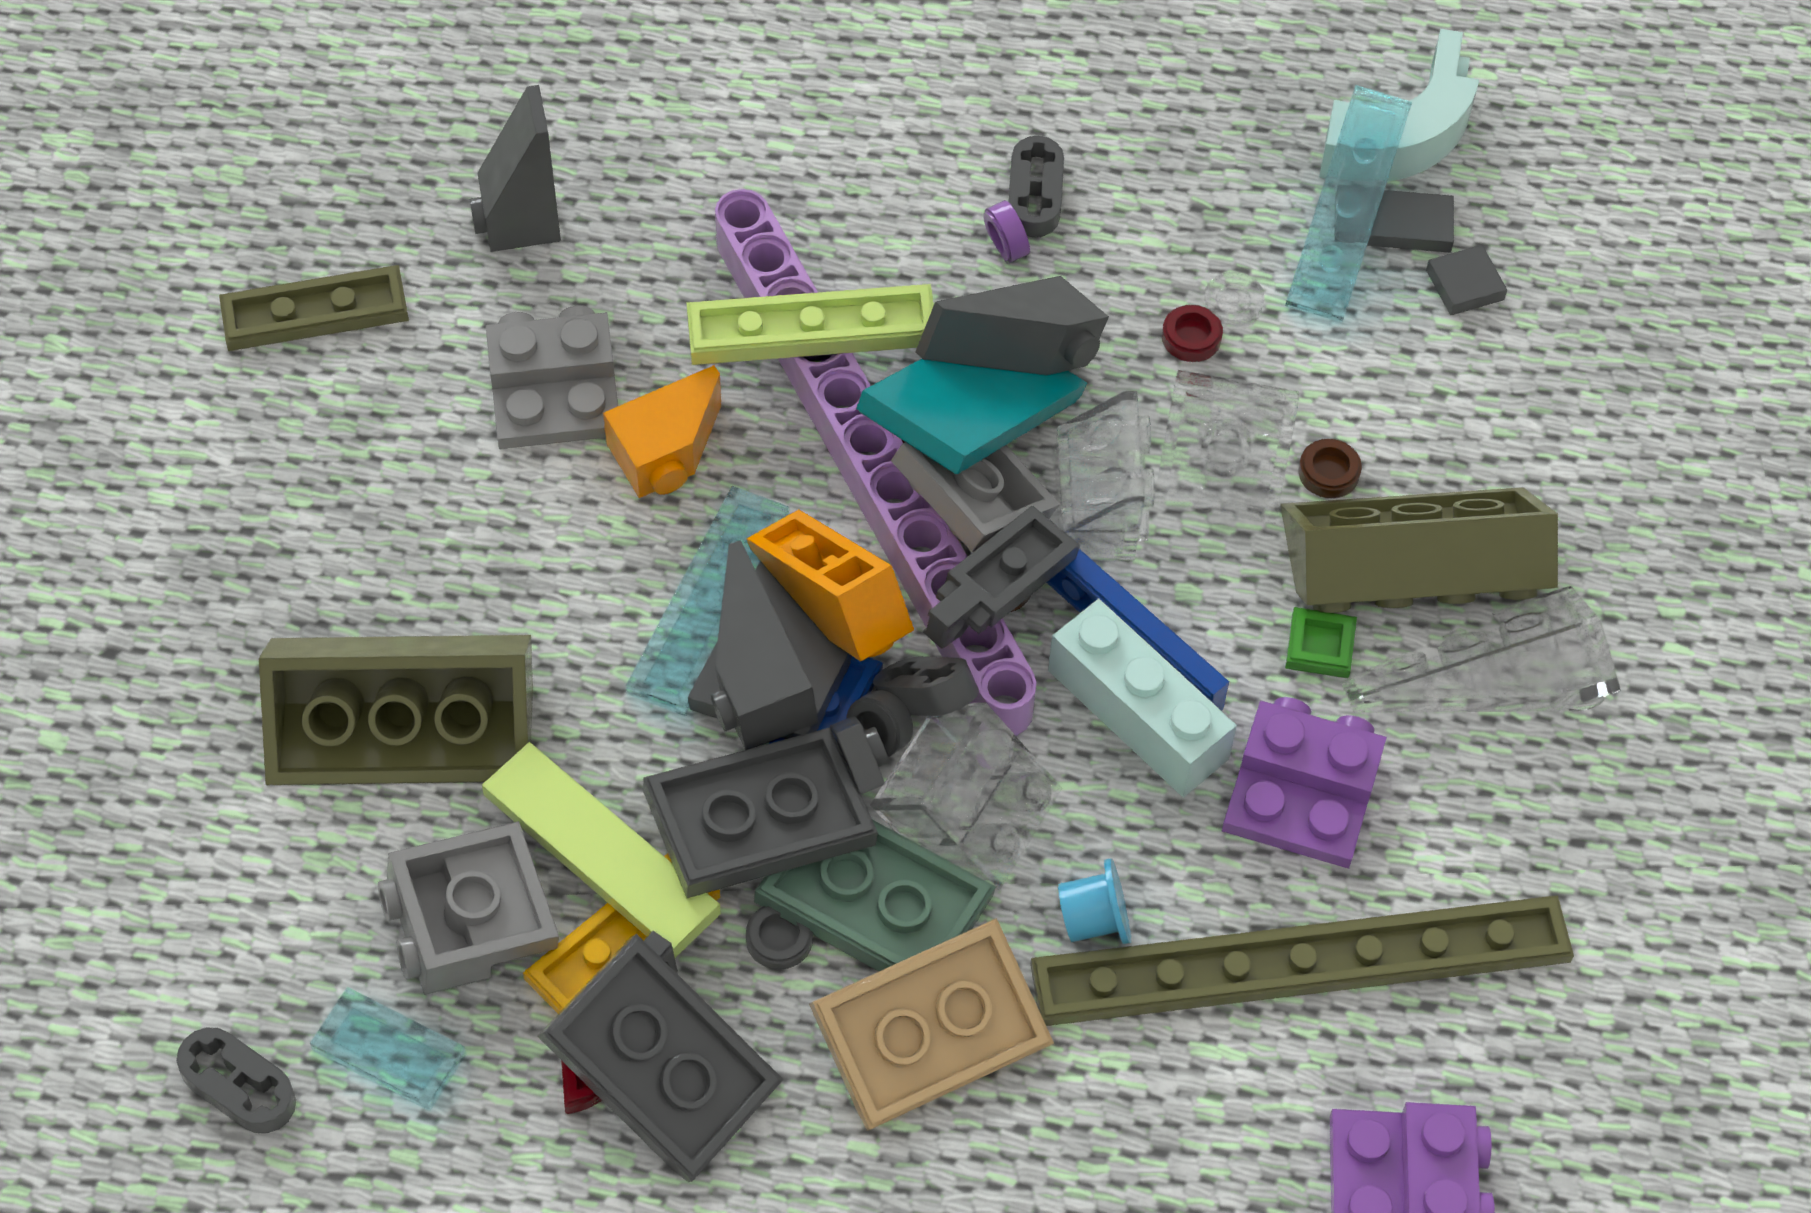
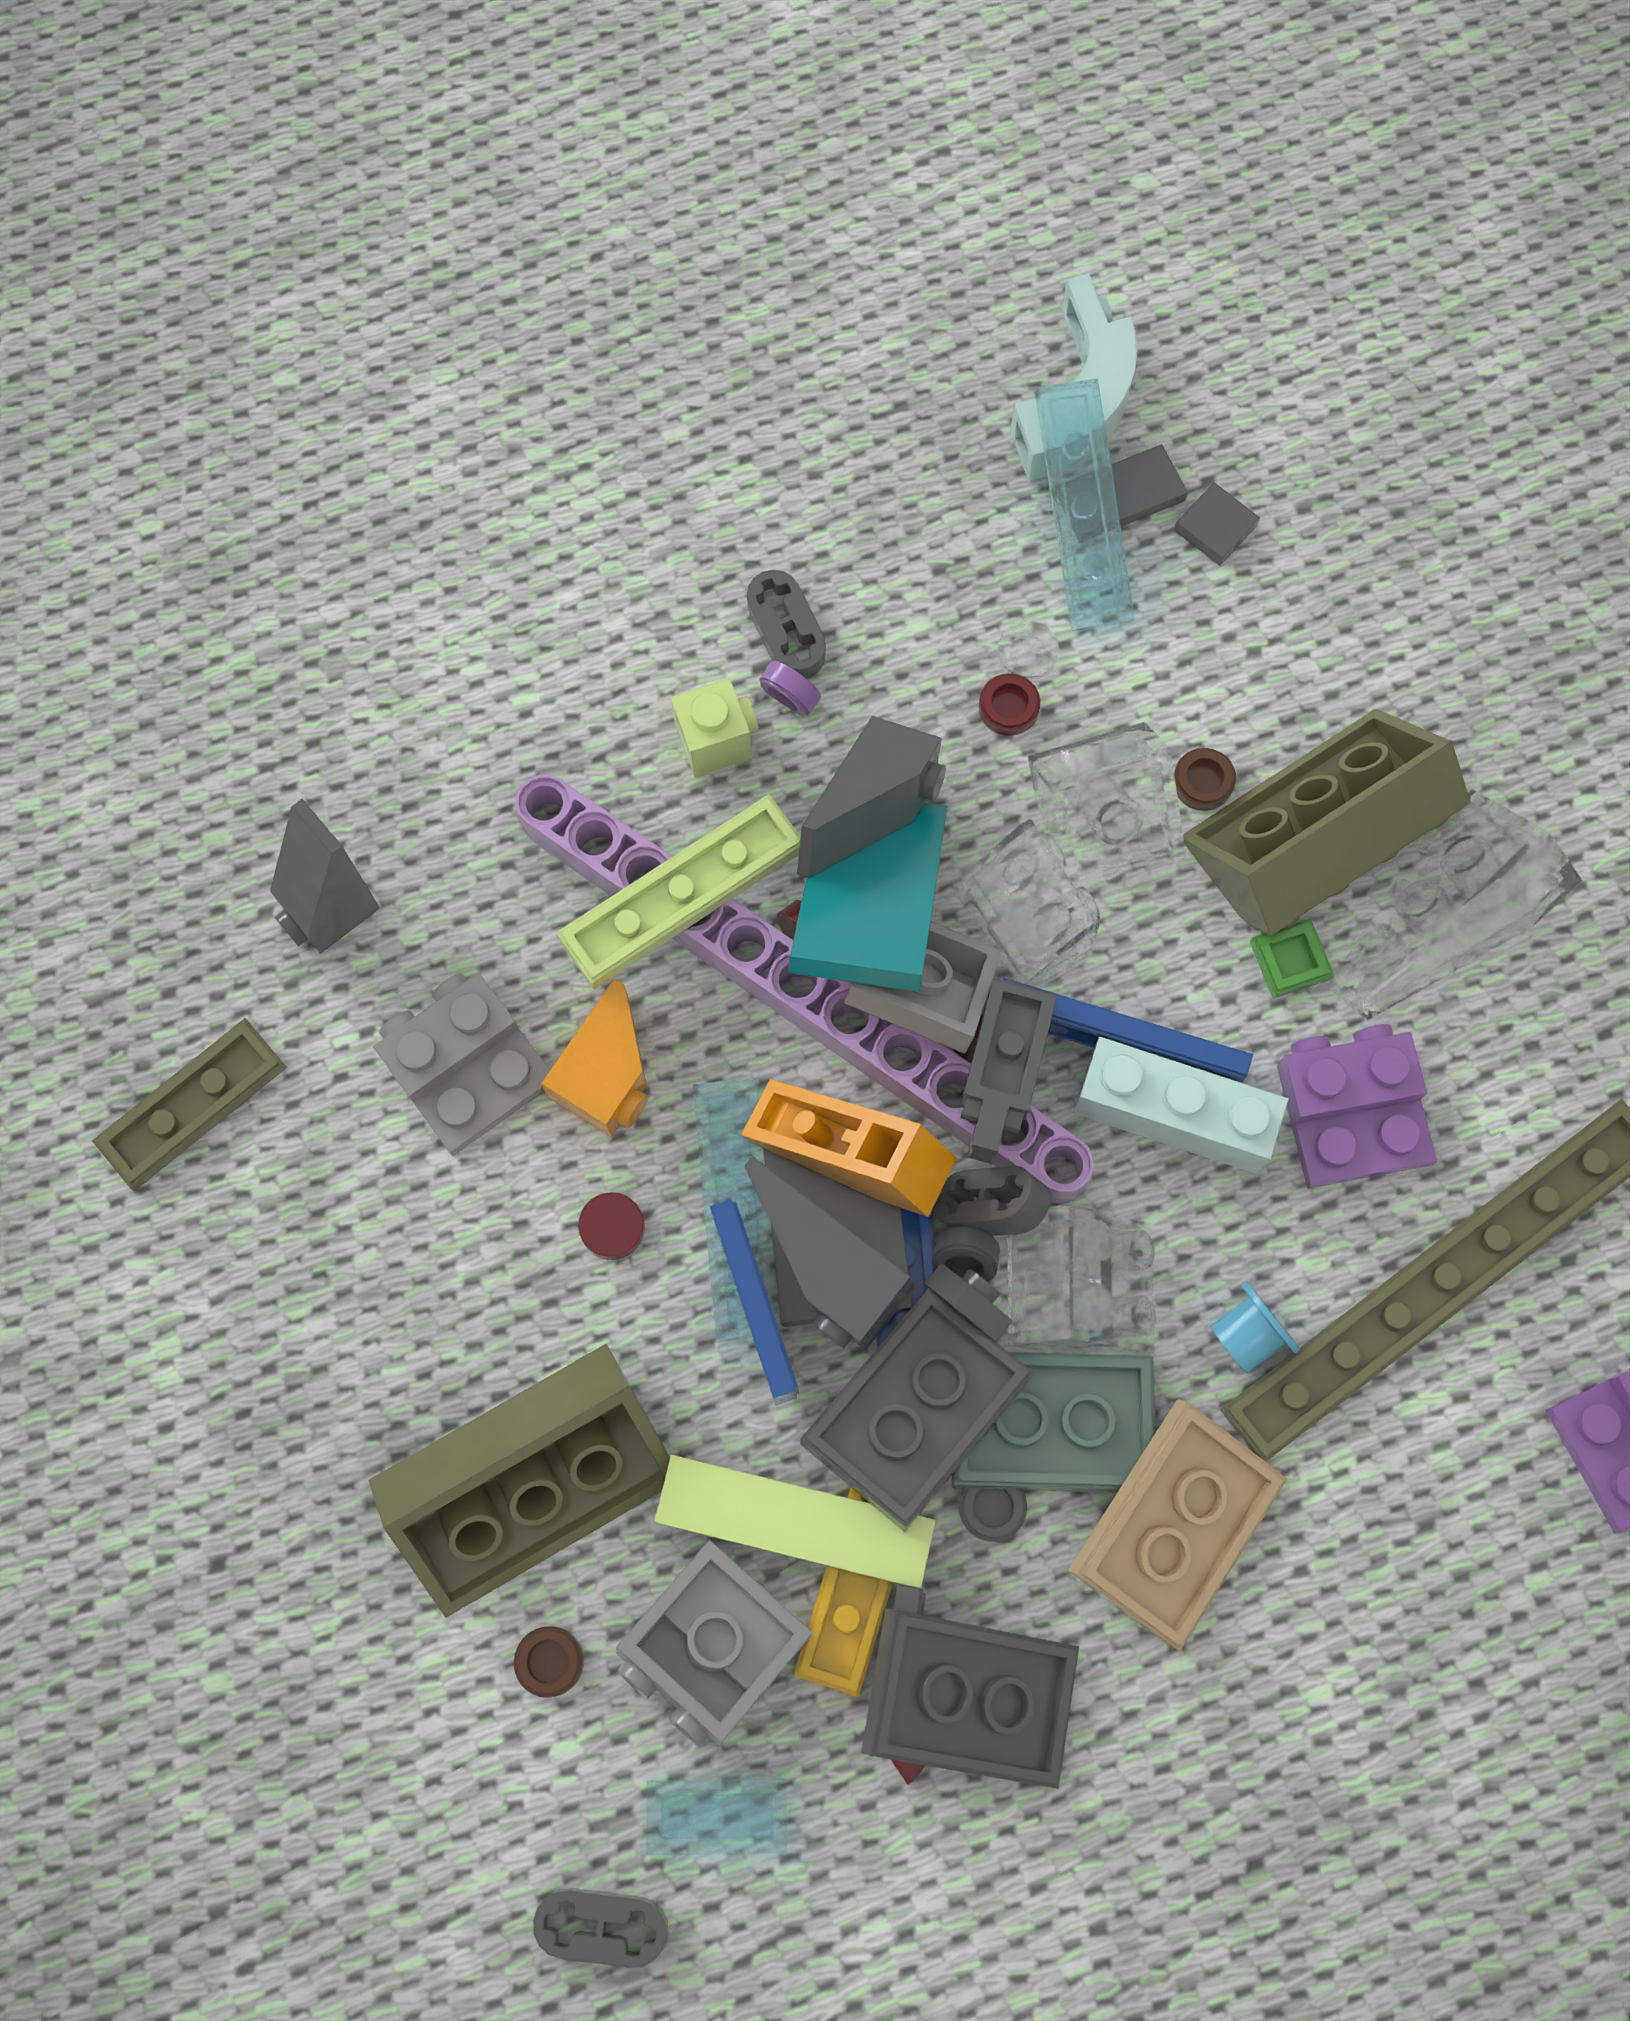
camera: 25 degrees left, 15 degrees up
(327, 859) = (548, 1661): none -> reddish brown tile
(595, 560) = (611, 1226): none -> dark red tile
(673, 661) = (755, 1302): none -> blue tile
(921, 227) = (714, 726): none -> yellowish green brick

